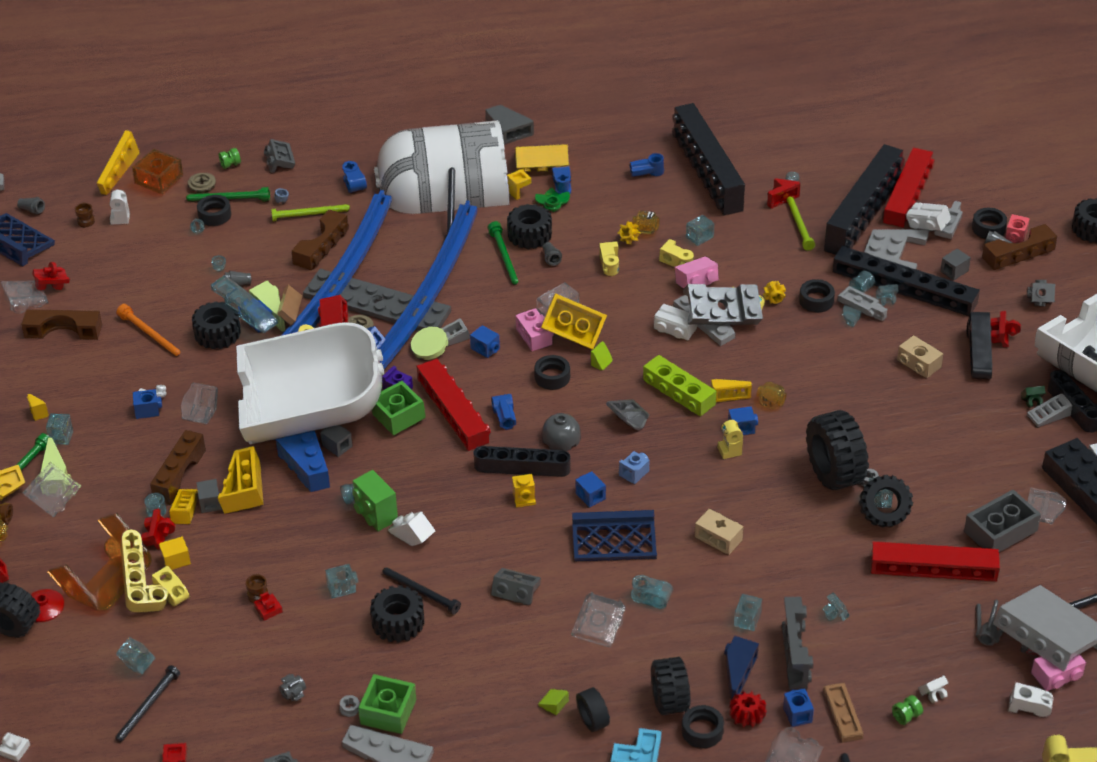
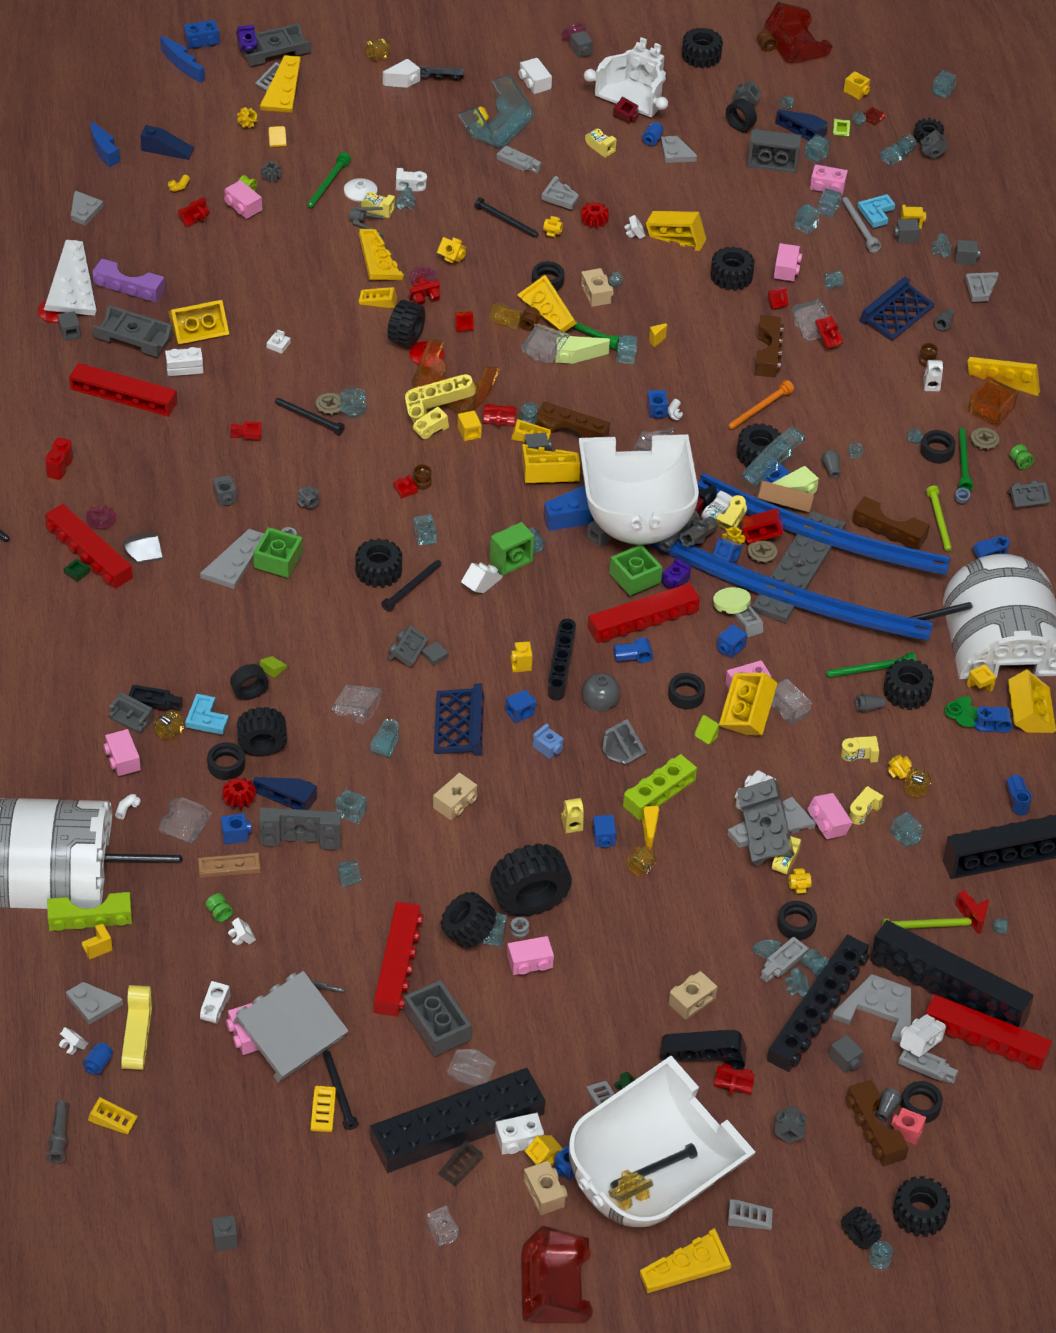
camera: 90 degrees right, 5 degrees up
(125, 679) = (326, 399): none -> dark tan gear
(520, 563) = (435, 653): none -> dark grey tile
(908, 462) = (530, 955): none -> bright pink brick

